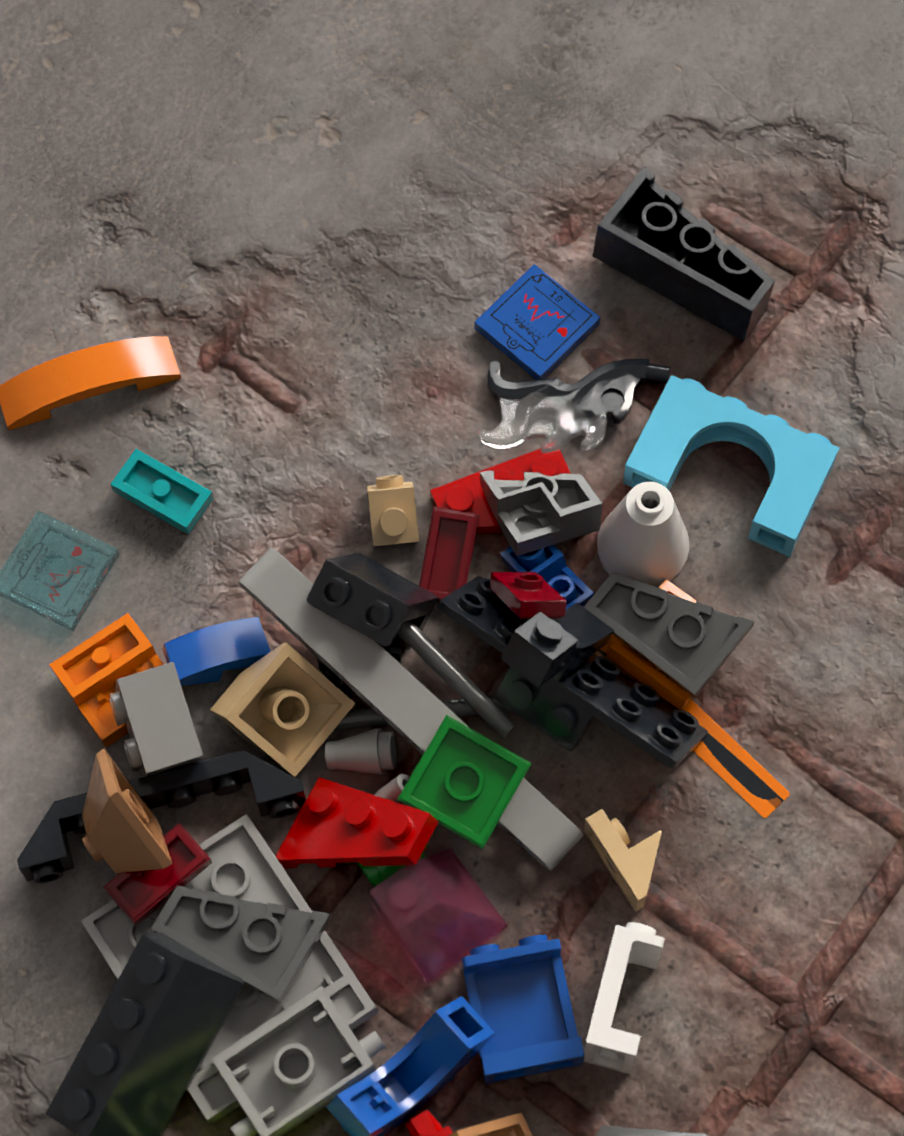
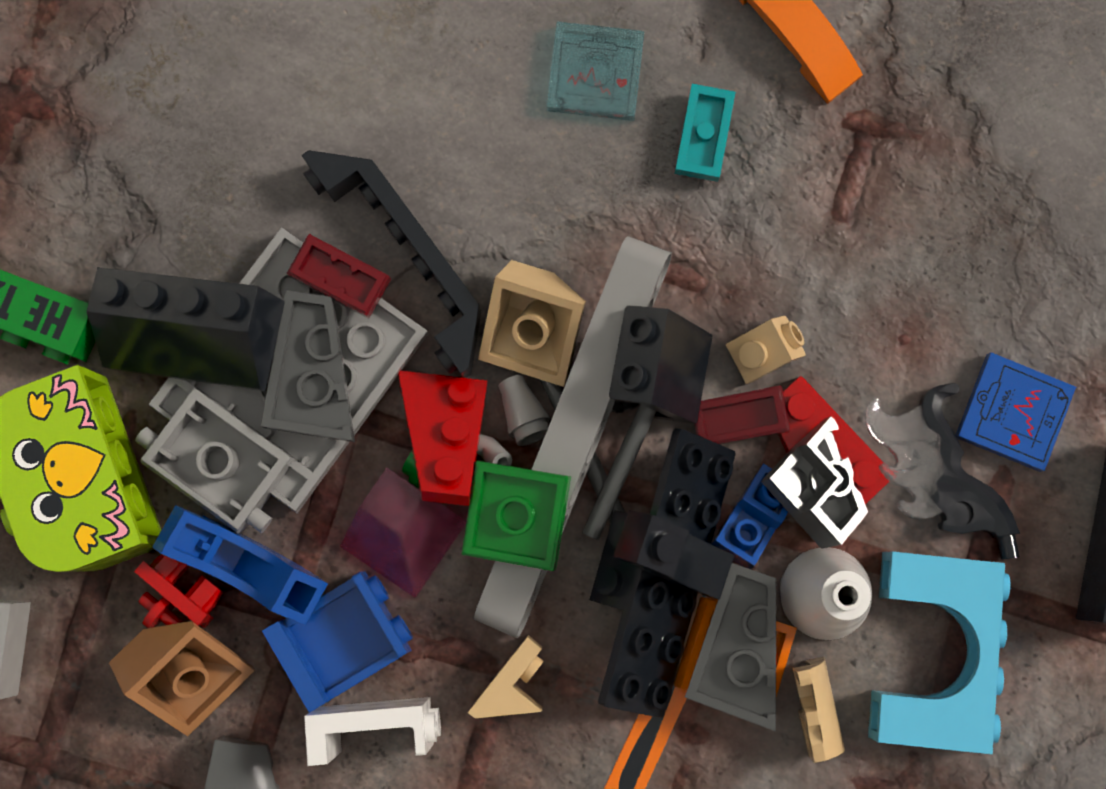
camera: 70 degrees right, 15 degrees up
(95, 665) = (512, 167): orange slope -> none
(120, 822) = (368, 227): medium nougat slope -> none
(156, 720) = (470, 217): light grey brick -> none
(211, 650) = (570, 243): blue slope -> none
(527, 594) = (718, 508): dark red plate -> none
(763, 590) = (818, 711): none -> tan slope

